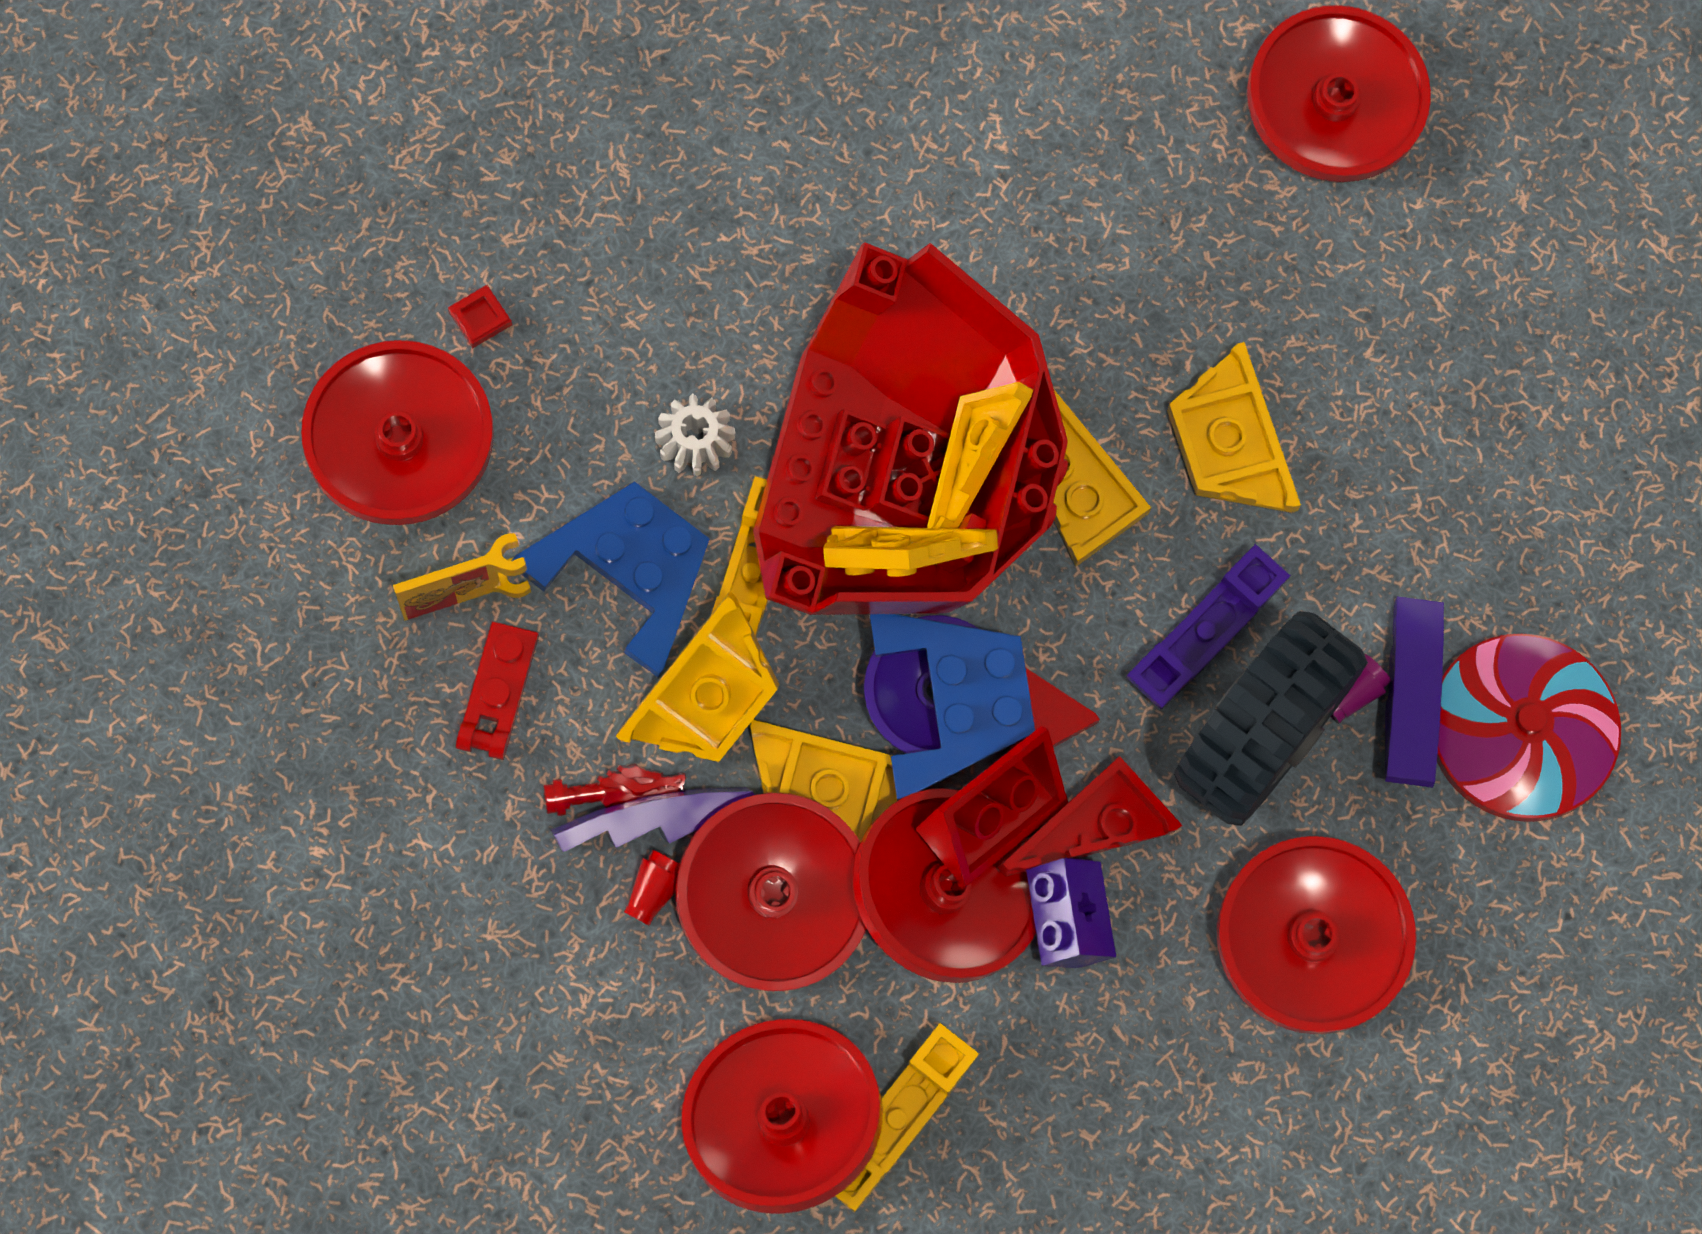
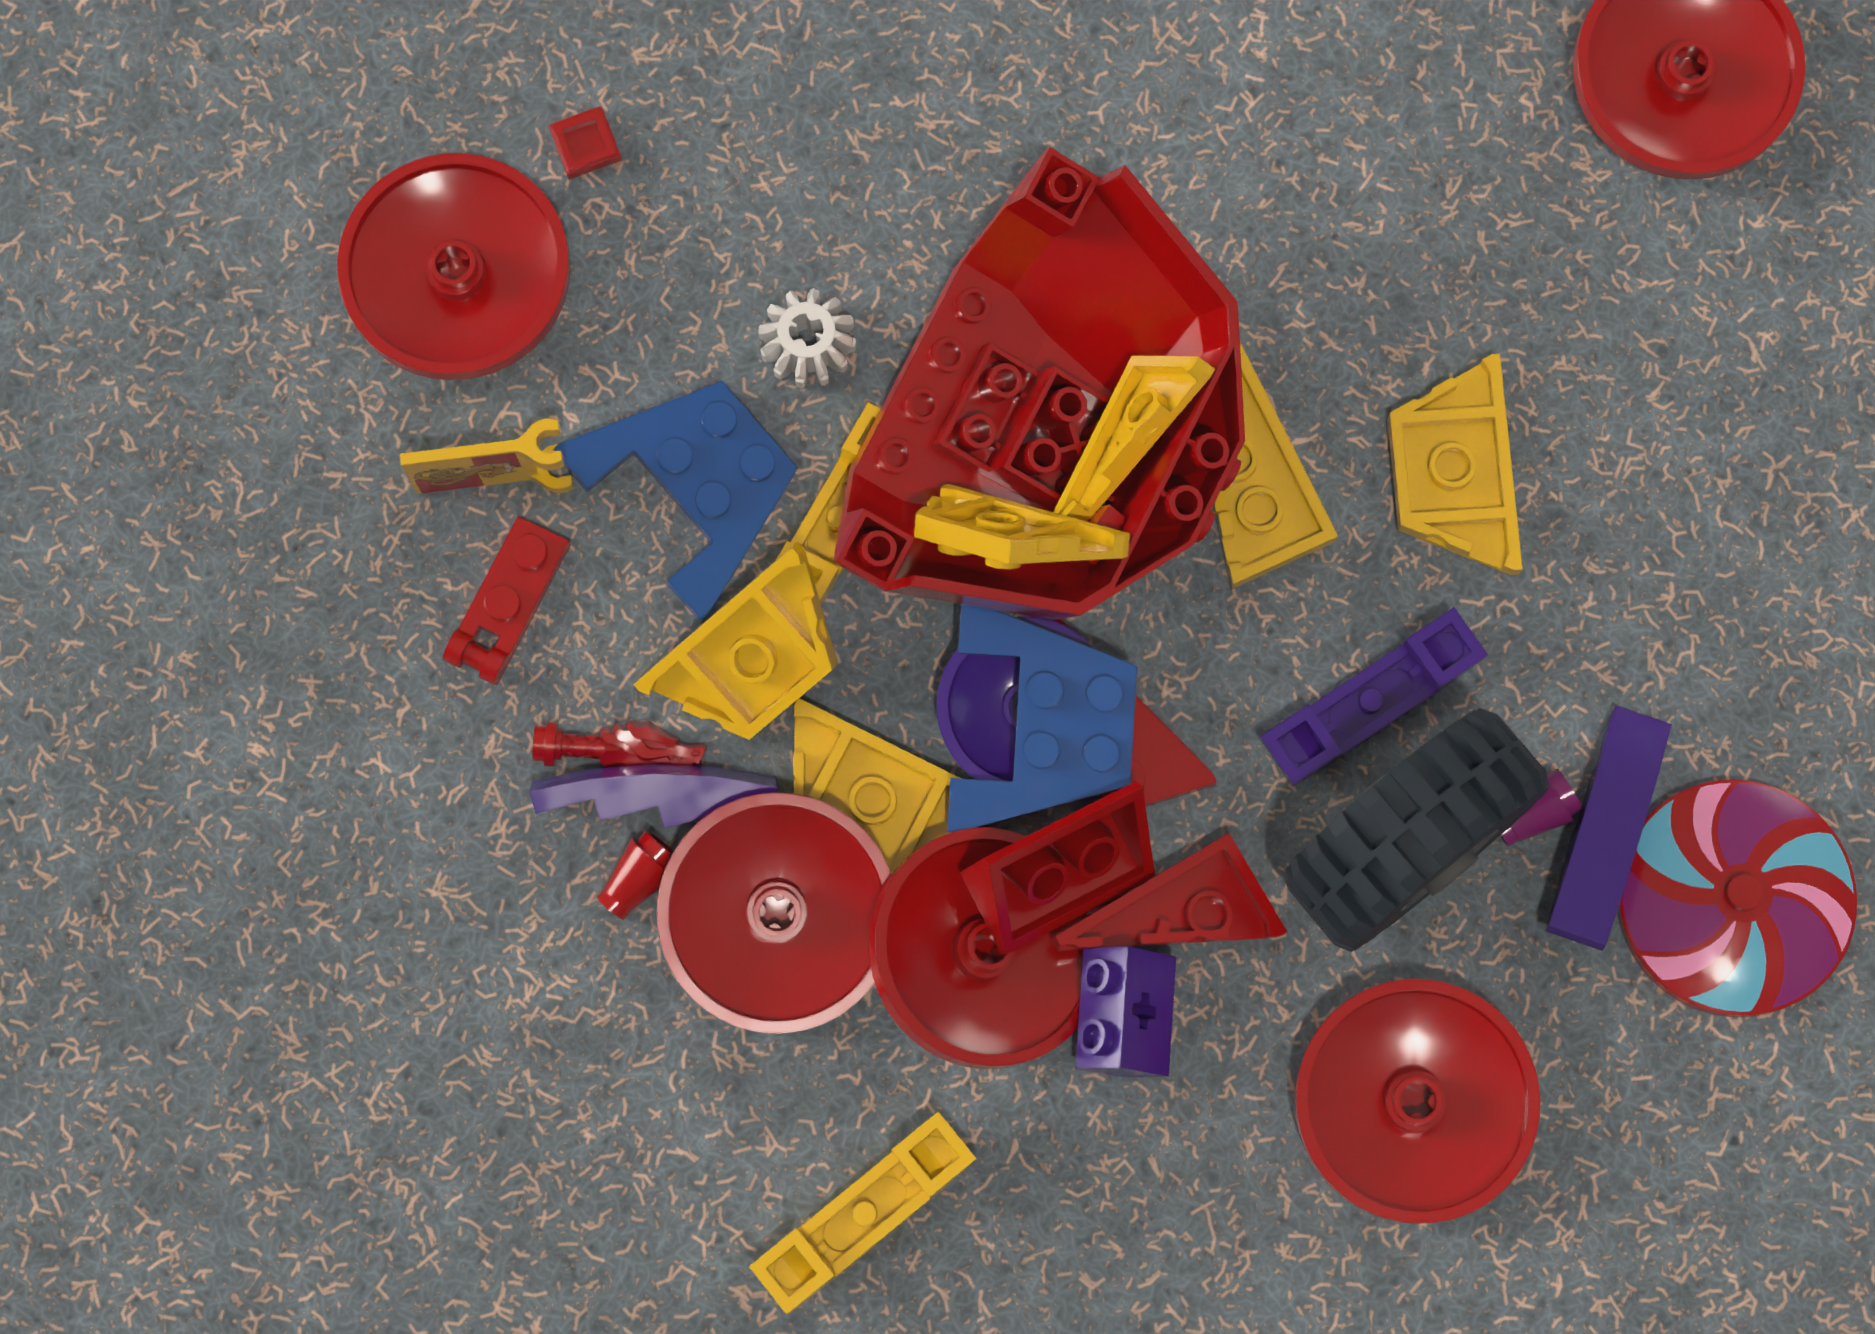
camera: 20 degrees right, 5 degrees up
(782, 1116) = (726, 1183): red dish -> none

